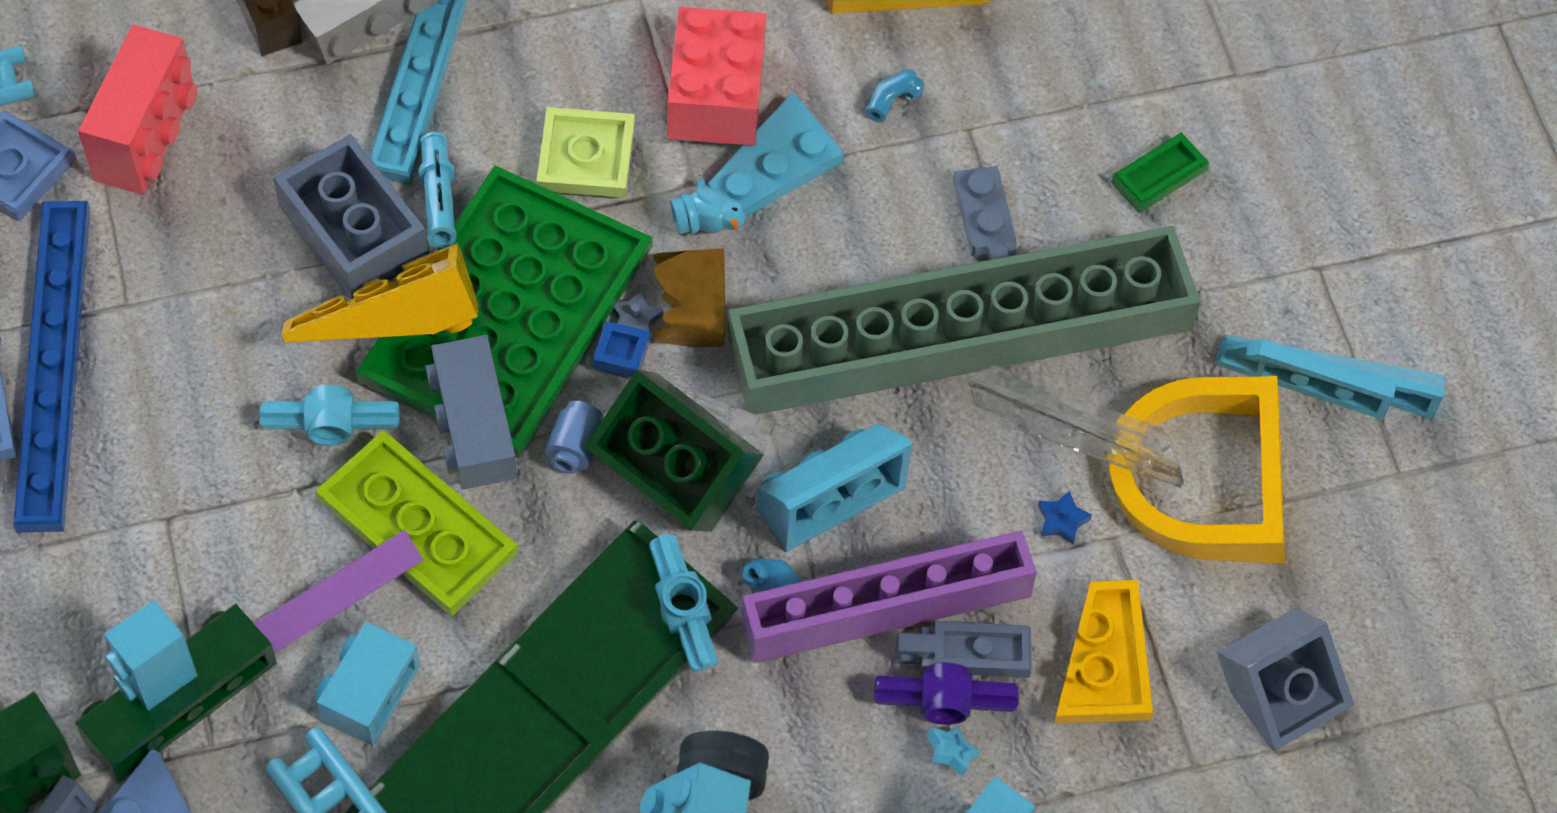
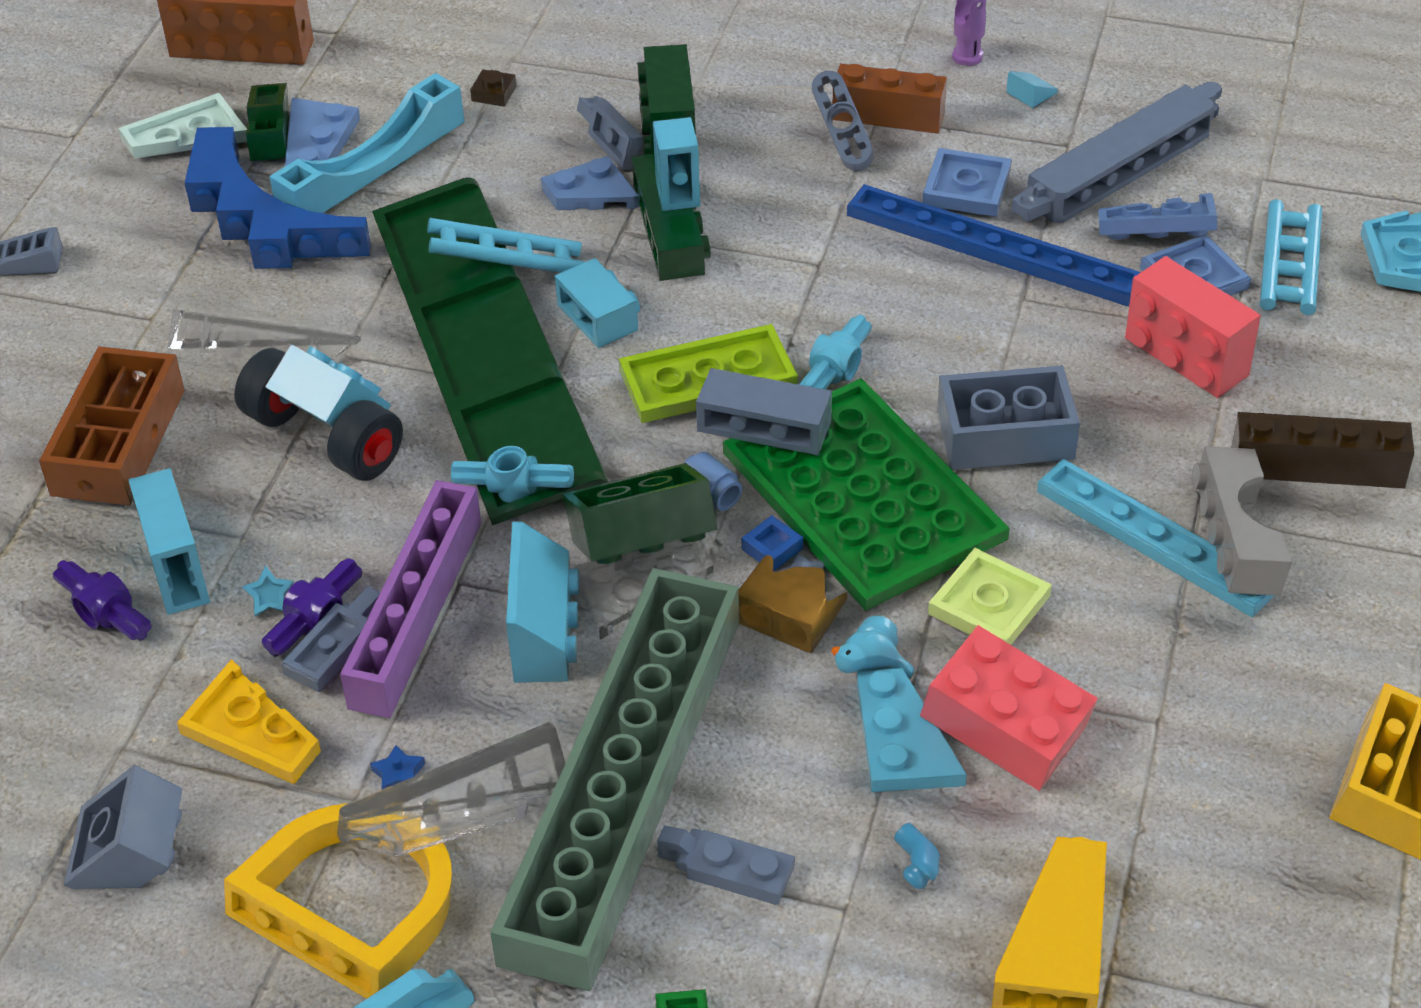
camera: 125 degrees right, 15 degrees down
(339, 591) = (683, 315): medium lavender sticker -> none
(422, 300) = (894, 407): yellow wedge -> none
(435, 156) = (1006, 483): medium azure pin -> none
(768, 574) = (491, 561): dark azure arm -> none

